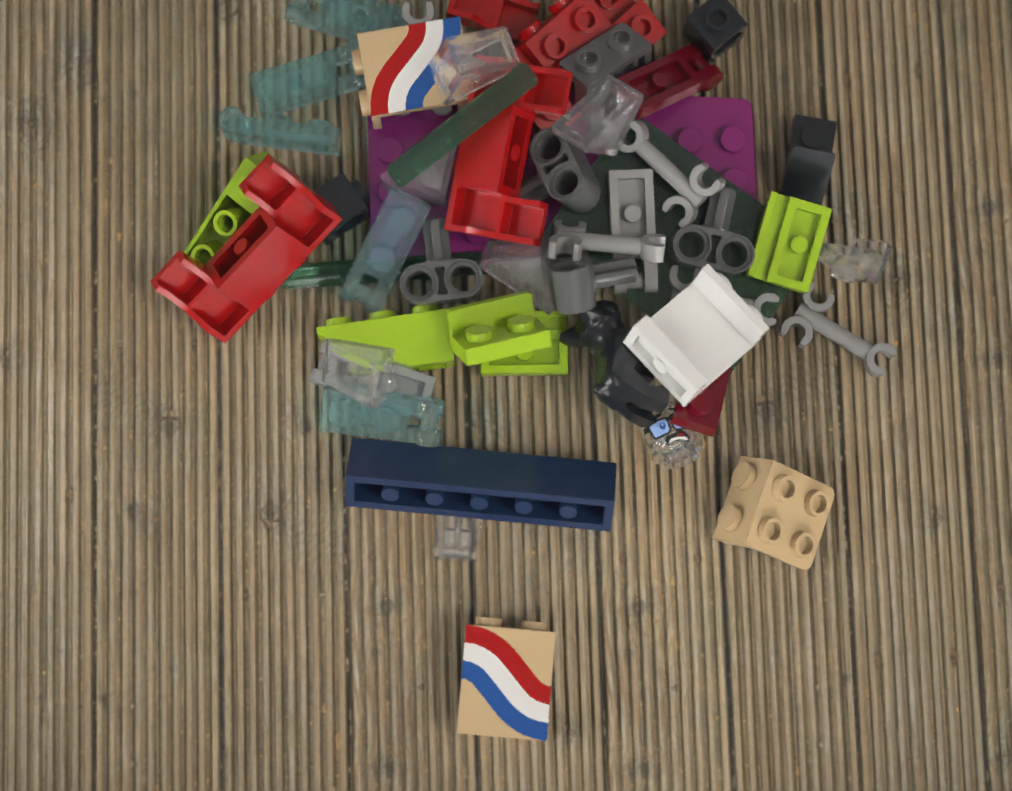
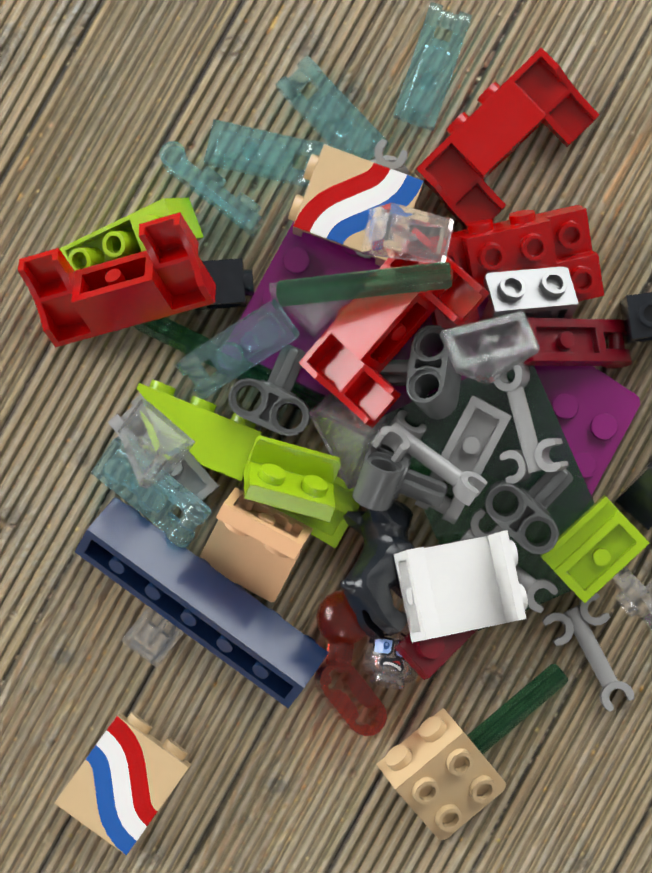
camera: 35 degrees right, 5 degrees up
(498, 408) = (255, 545): none -> light nougat bracket
(615, 436) = (341, 629): none -> clear red beam
(805, 415) = (518, 708): none -> clear green axle

